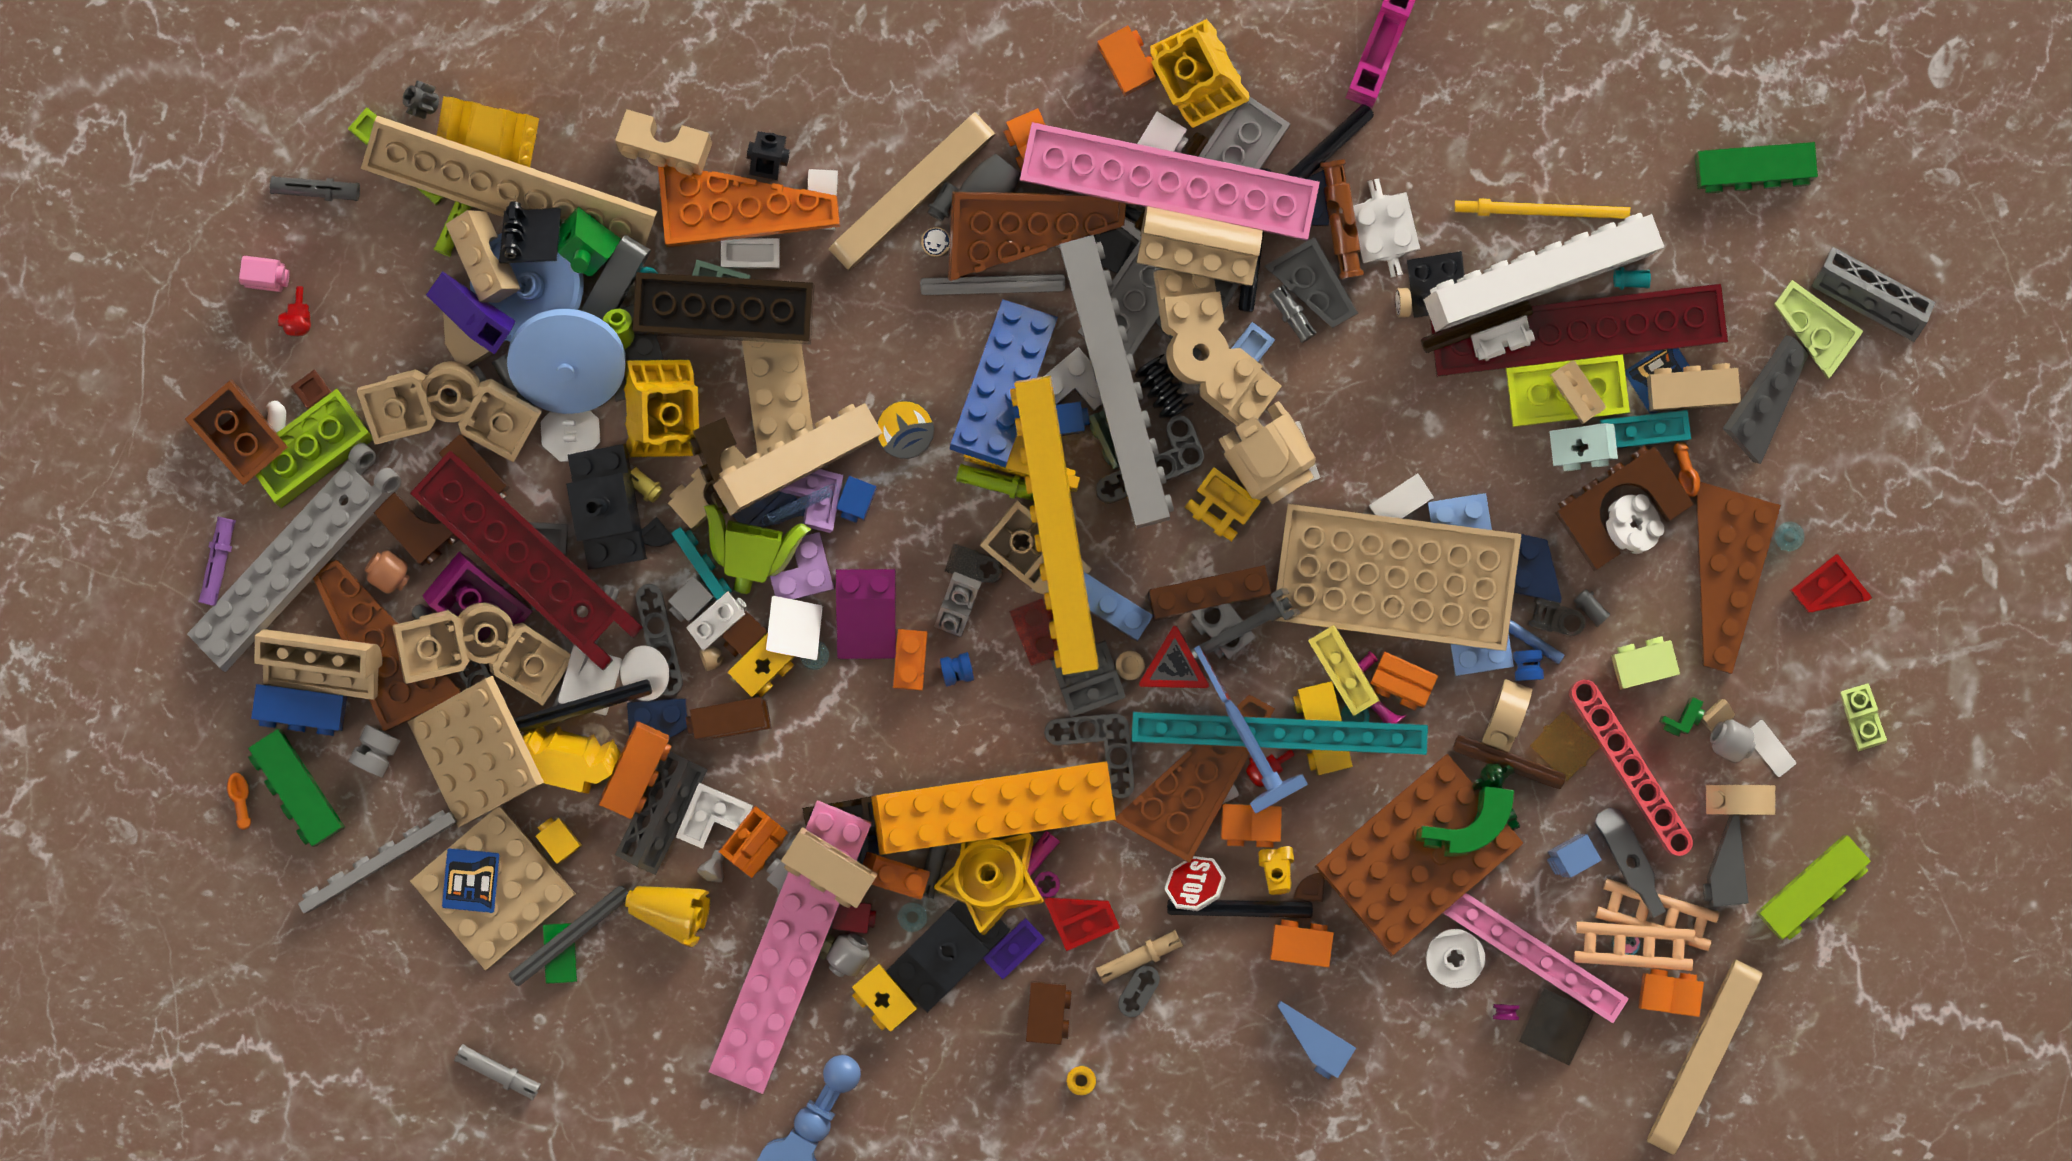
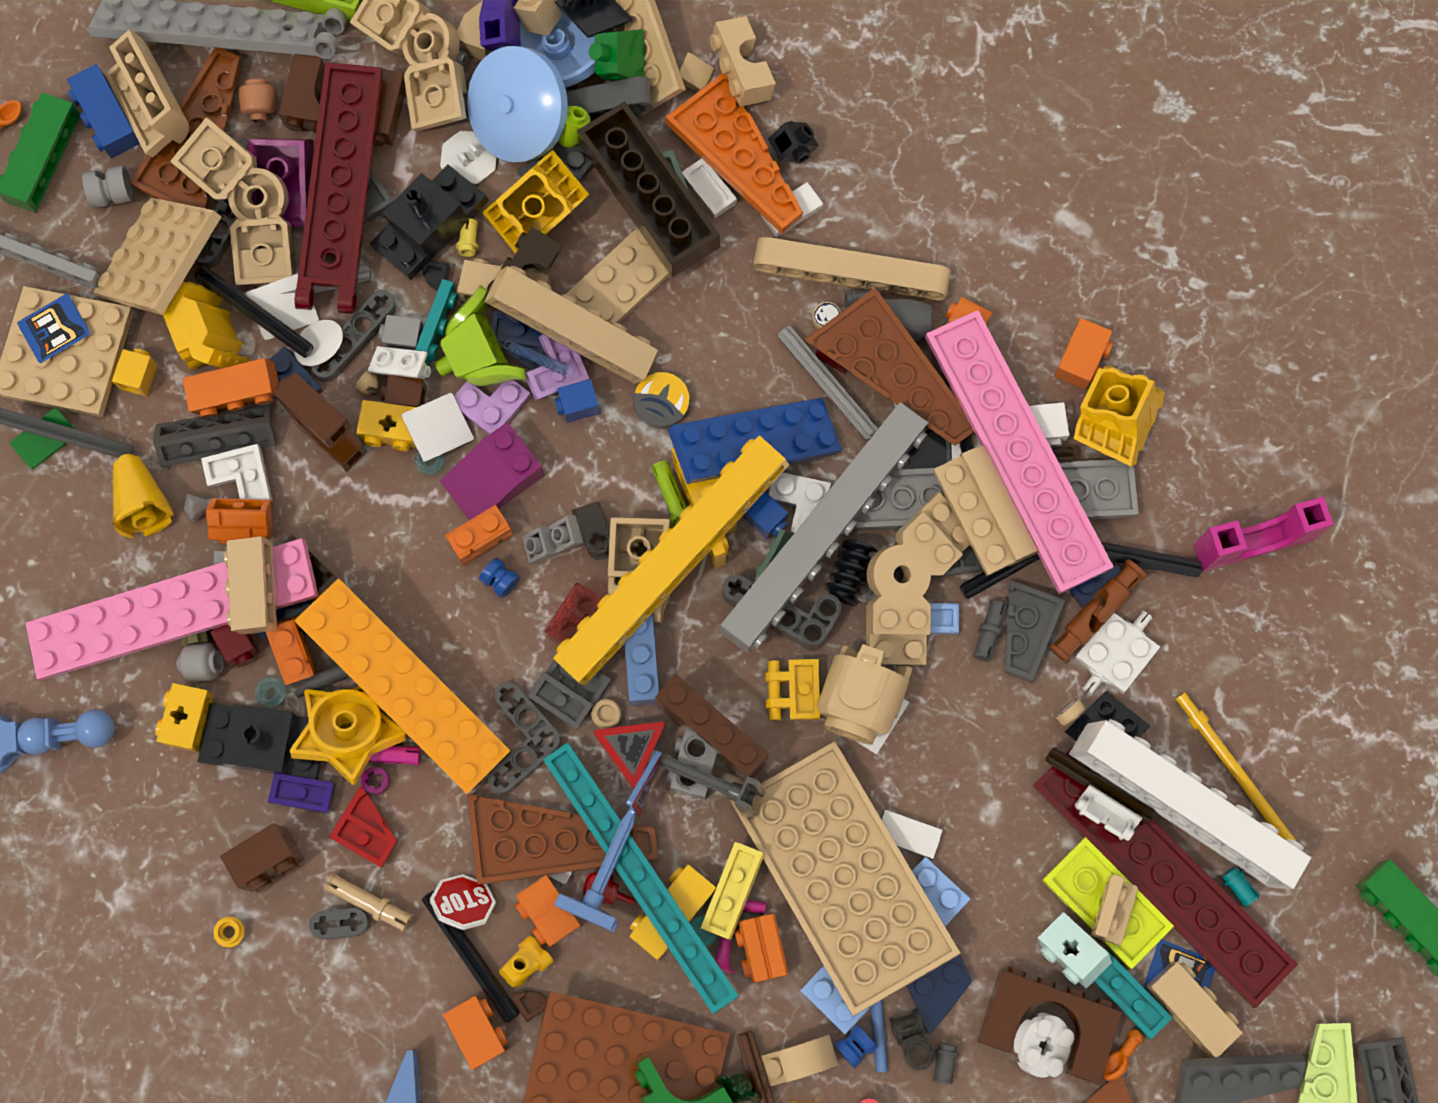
camera: 50 degrees right, 10 degrees down
(640, 187) = (695, 72): none -> tan slope

